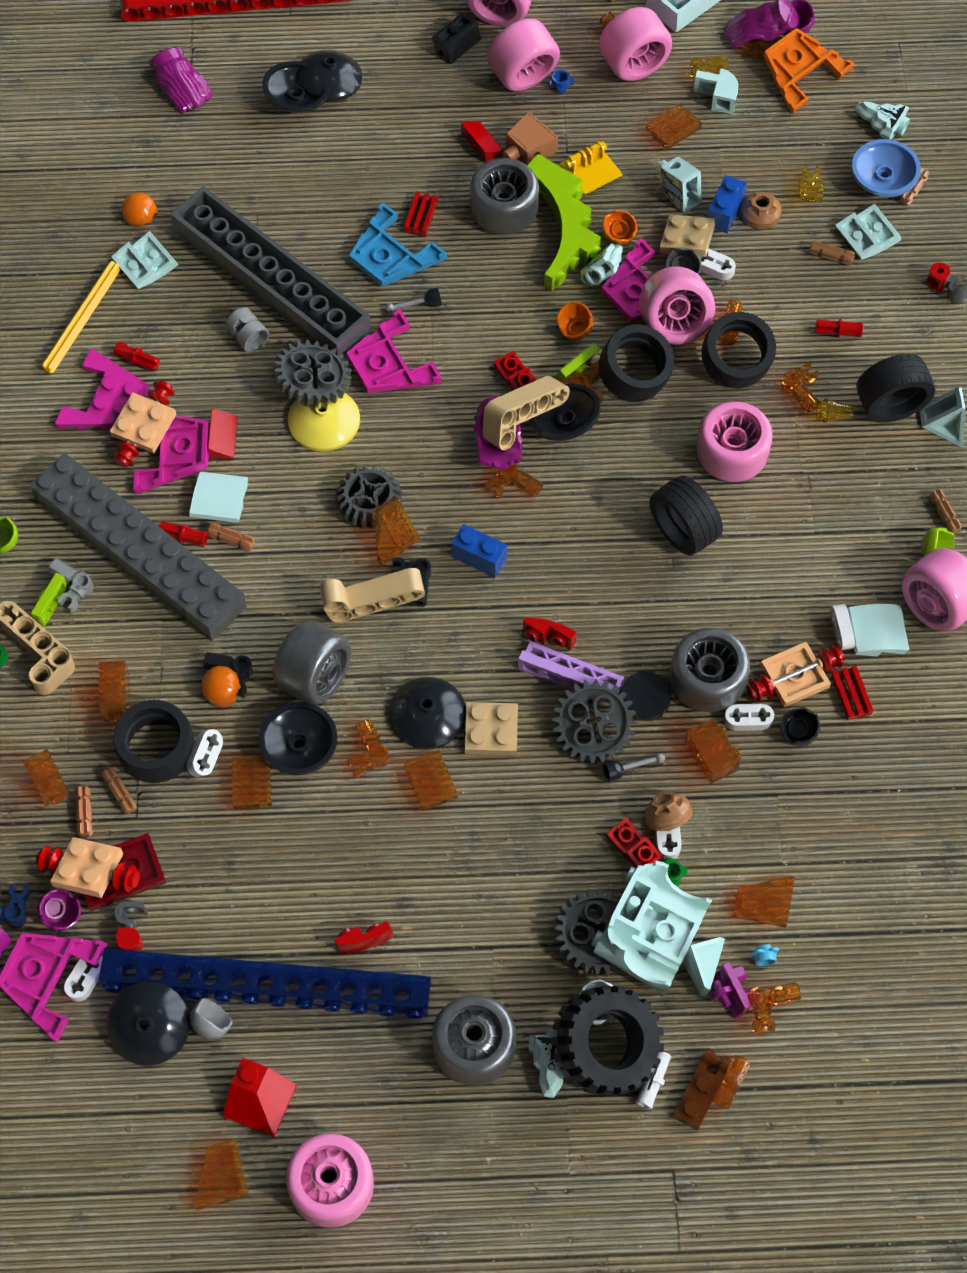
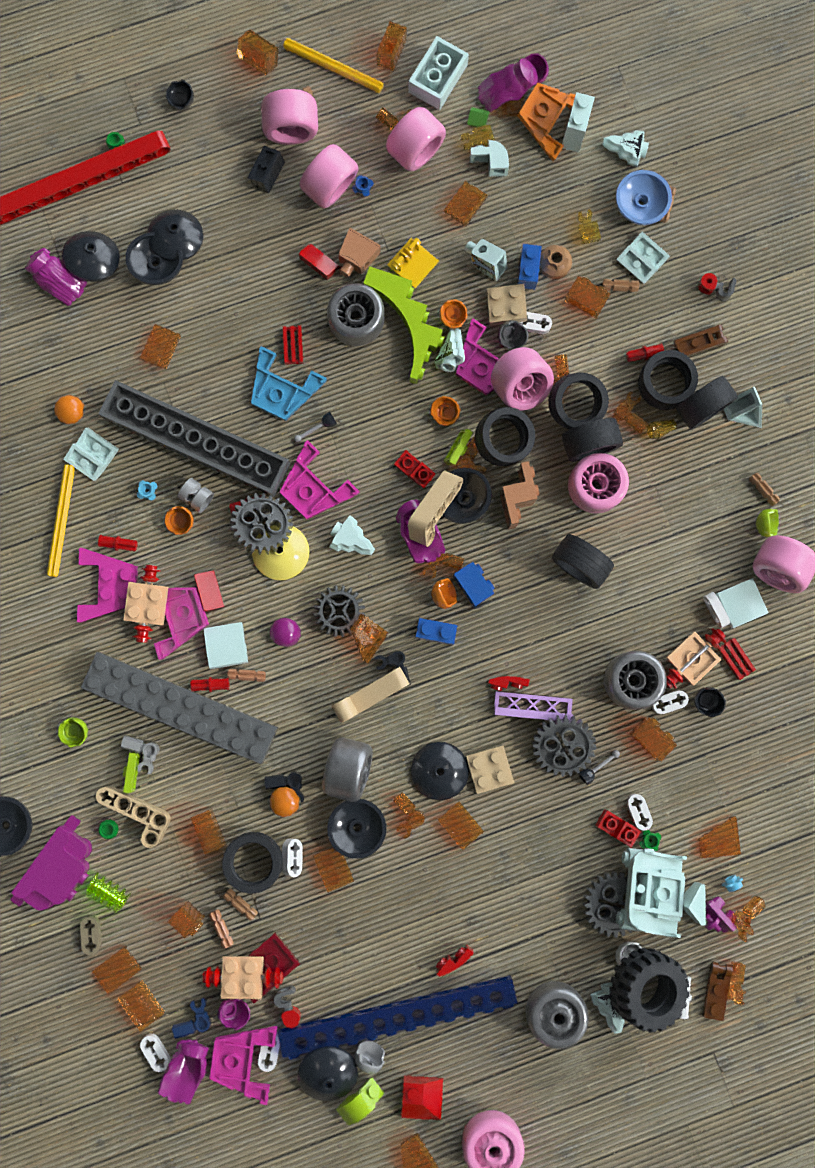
camera: 25 degrees left, 20 degrees up
(175, 1069) = (361, 1103): none -> lime brick
(193, 307) = (146, 485): none -> medium azure plate
(217, 350) = (179, 520): none -> orange hair
(226, 70) = (91, 264): none -> black dish
(268, 177) = (160, 346): none -> clear orange plate
(295, 503) = (285, 632): none -> magenta hair
(411, 423) = (350, 538): none -> light aqua rock
(503, 512) = (444, 594): none -> orange hair
(544, 513) = (474, 584): none -> blue brick
(633, 428) = (519, 495): none -> nougat bracket
(649, 695) = (592, 708): black tile -> none
(667, 811) = (639, 806): medium nougat piece -> none
(716, 48) = (477, 117): none -> bright green slope
(744, 381) = (592, 438): none -> black tyre
(786, 252) = (587, 296): none -> clear orange brick
(829, 74) = (577, 122): none -> light aqua brick
(851, 335) = (683, 364): none -> black tyre
(912, 333) = (701, 341): none -> reddish brown plate

